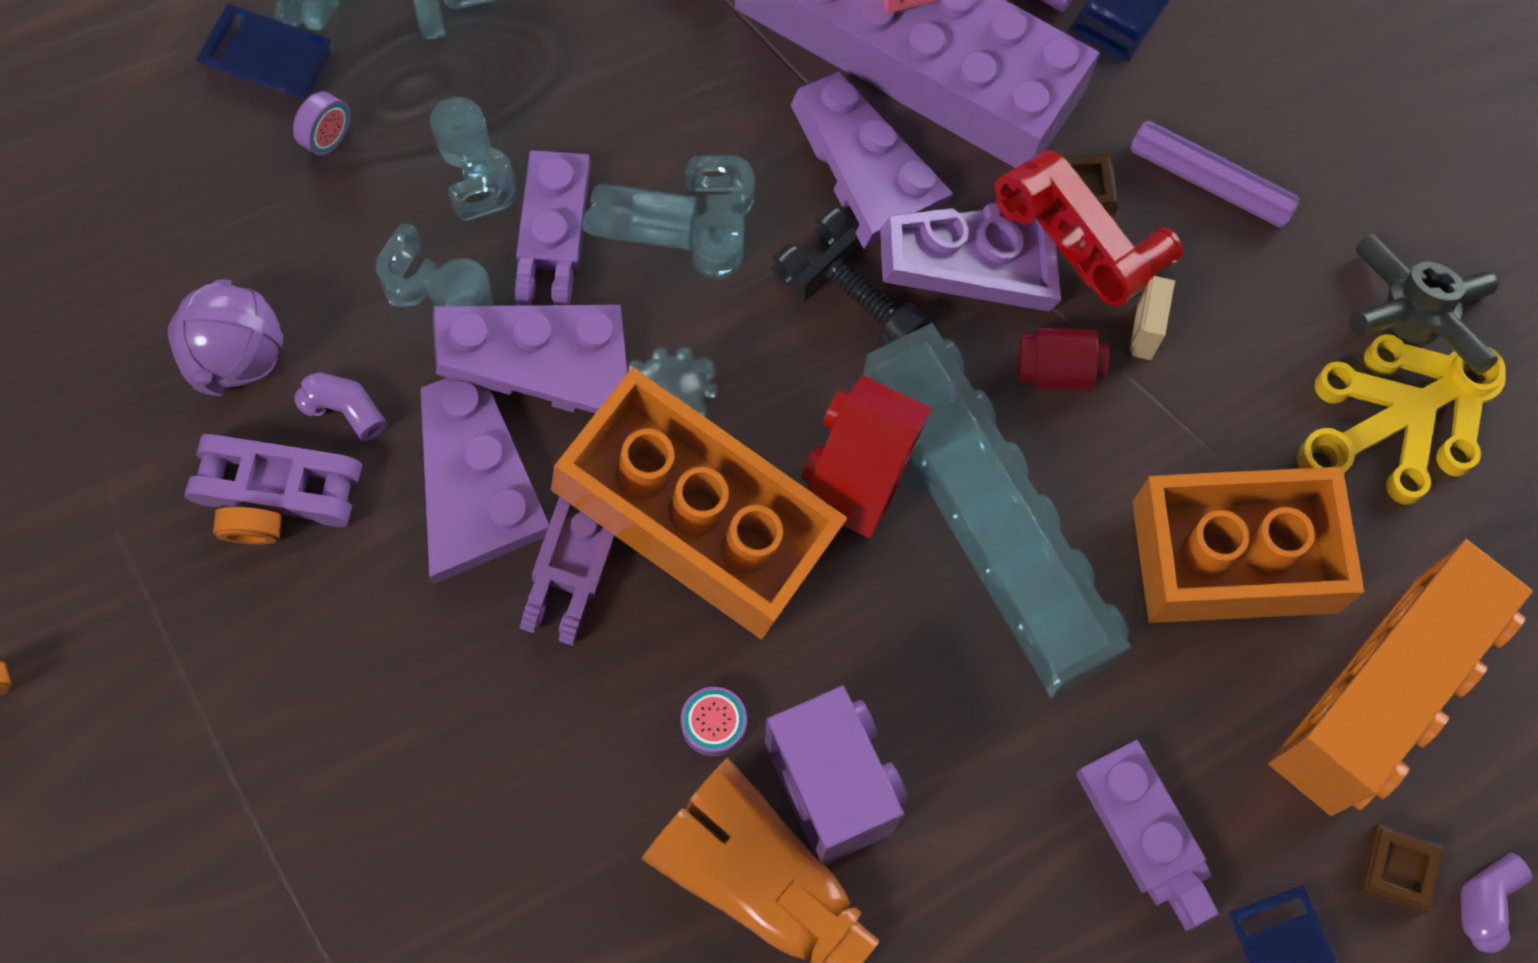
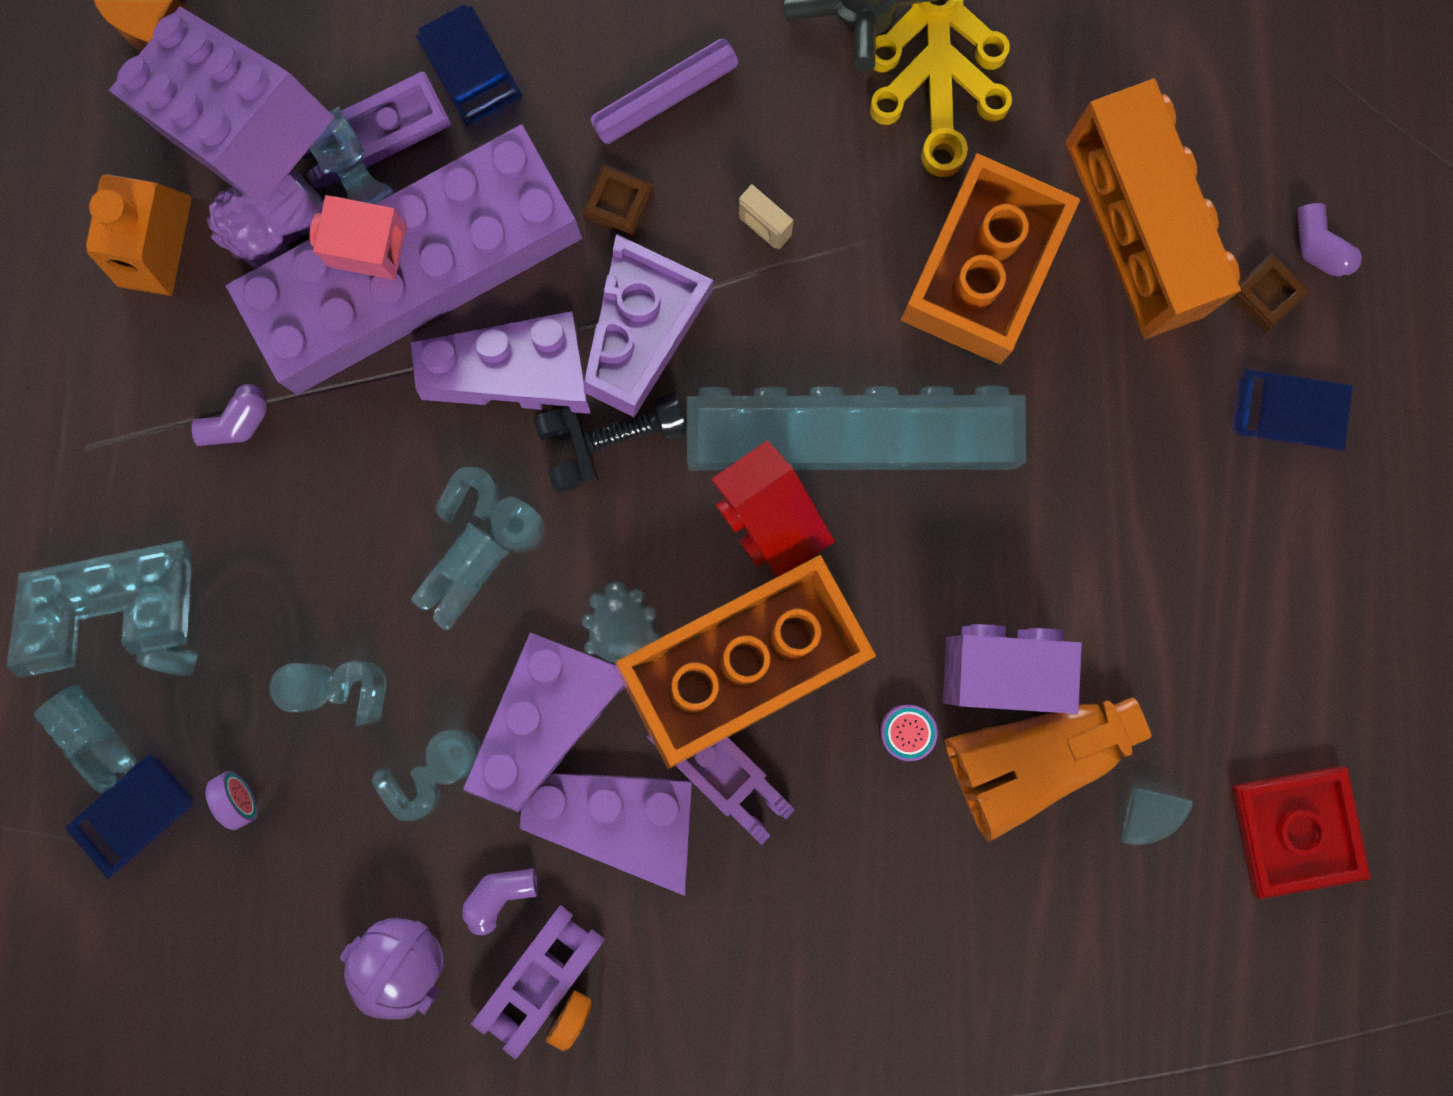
camera: 55 degrees left, 15 degrees up
(552, 223) = (424, 650): medium lavender hinge -> none
(1062, 359) = (762, 307): dark red brick -> none
(1101, 254) = (625, 235): red beam -> none
(1149, 832) = (1152, 456): medium lavender hinge -> none

